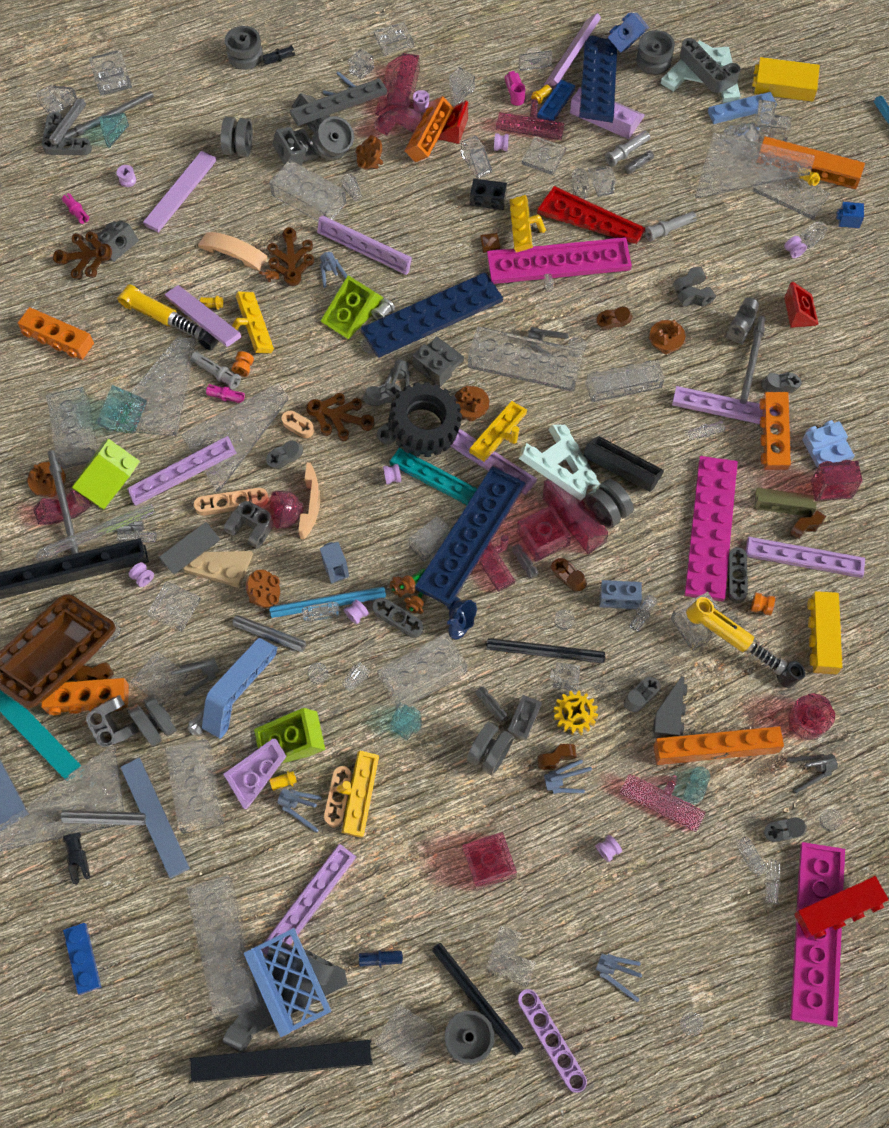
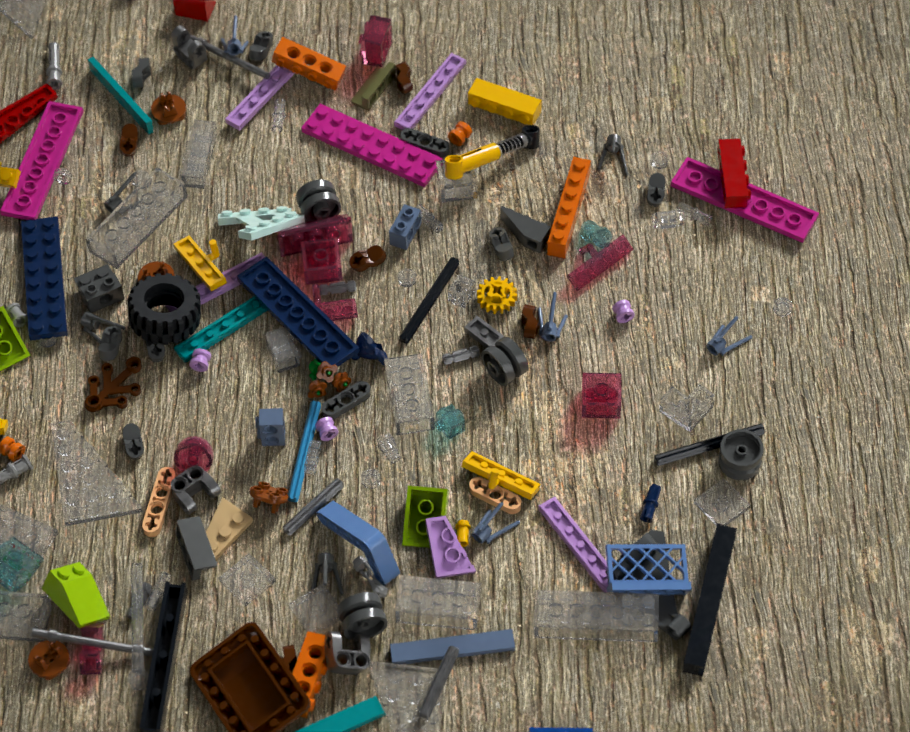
camera: 70 degrees left, 10 degrees down
(76, 857) = (461, 719): black piece -> none
(141, 574) = (202, 596): lavender wheel -> none
(181, 470) = (106, 532): lavender tile -> none
(225, 393) = (36, 475): dark pink pin -> none
(296, 426) = (103, 423): light nougat beam -> none
(308, 520) = (173, 425): light nougat slope -> none
(553, 1052) = (769, 398): lavender beam -> none
(623, 463) = (281, 182): black piece -> none
(661, 291) = (121, 95): none -> teal tile
(695, 276) = (121, 71): dark grey piece -> none
(765, 357) = (234, 46): none -> sand blue plant
(821, 712) = (572, 136): clear pink brick -> none
(828, 443) = (336, 37): light blue plate -> none

